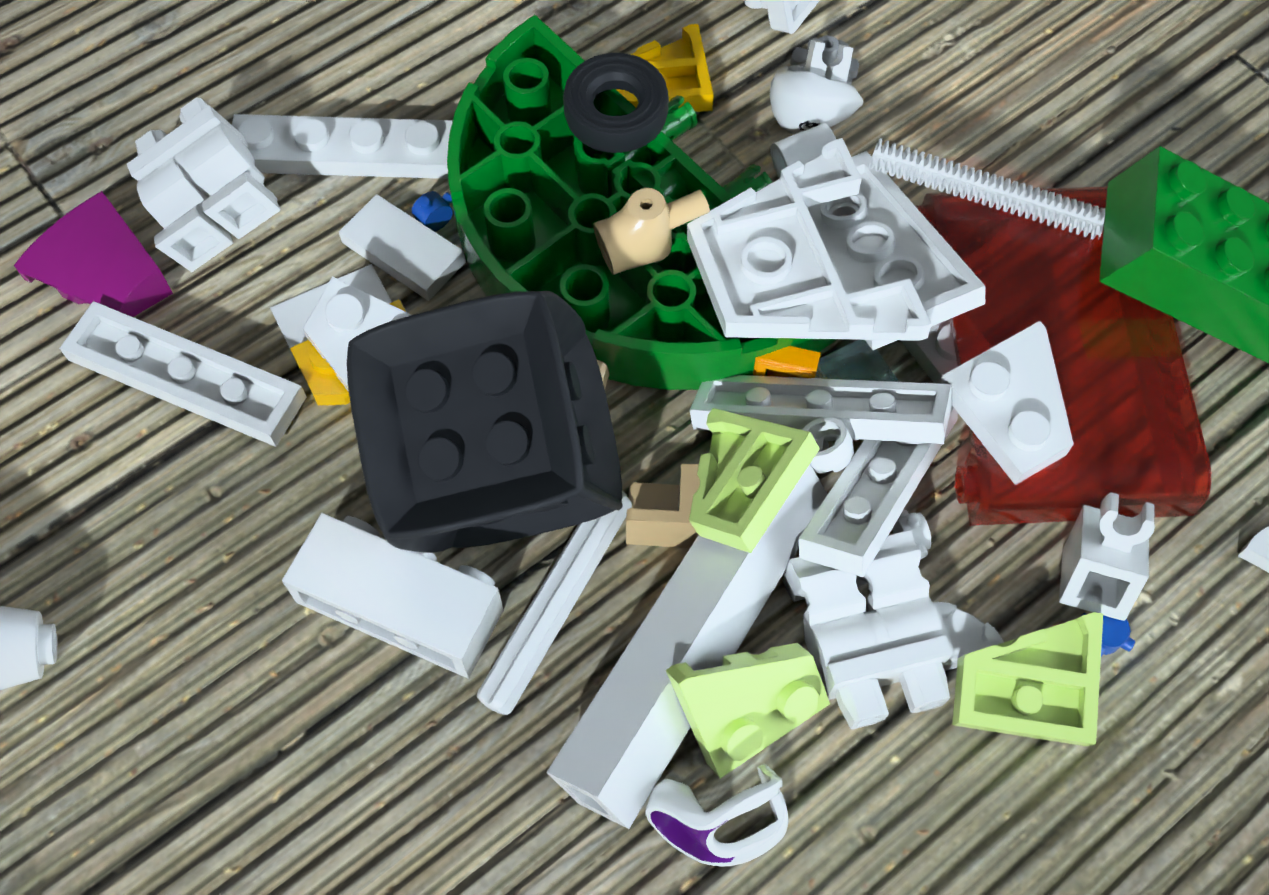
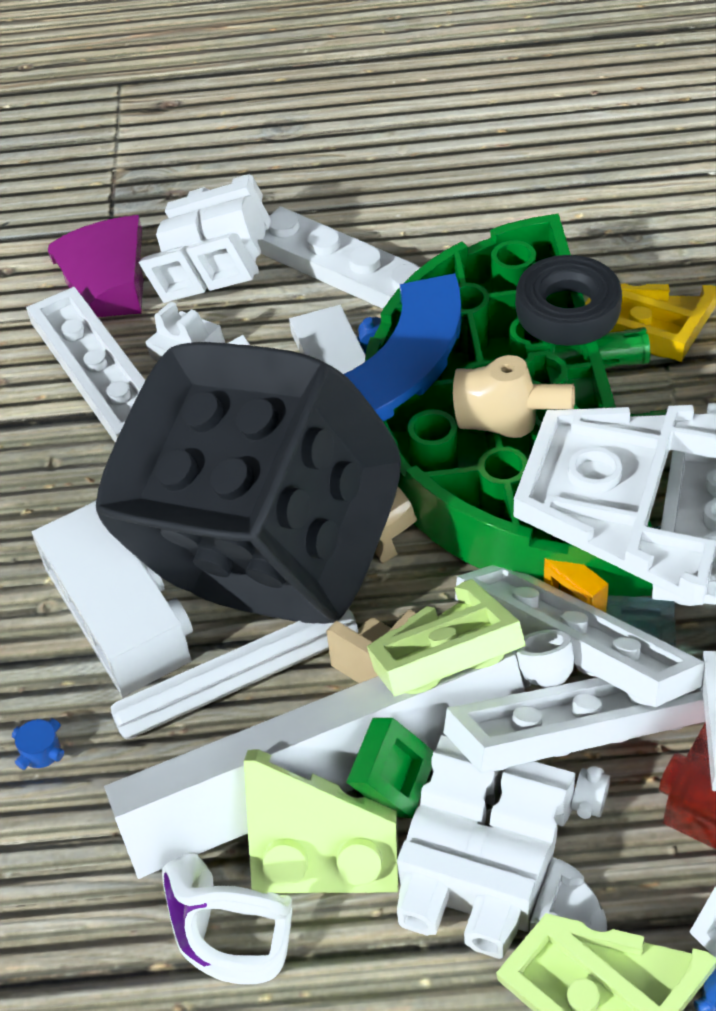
camera: 40 degrees right, 15 degrees down
(249, 303) = (180, 328): none -> white tile
(433, 767) = (37, 743): none -> blue piece
(519, 215) = (417, 347): none -> blue tile
(773, 610) = (391, 766): none -> green plate

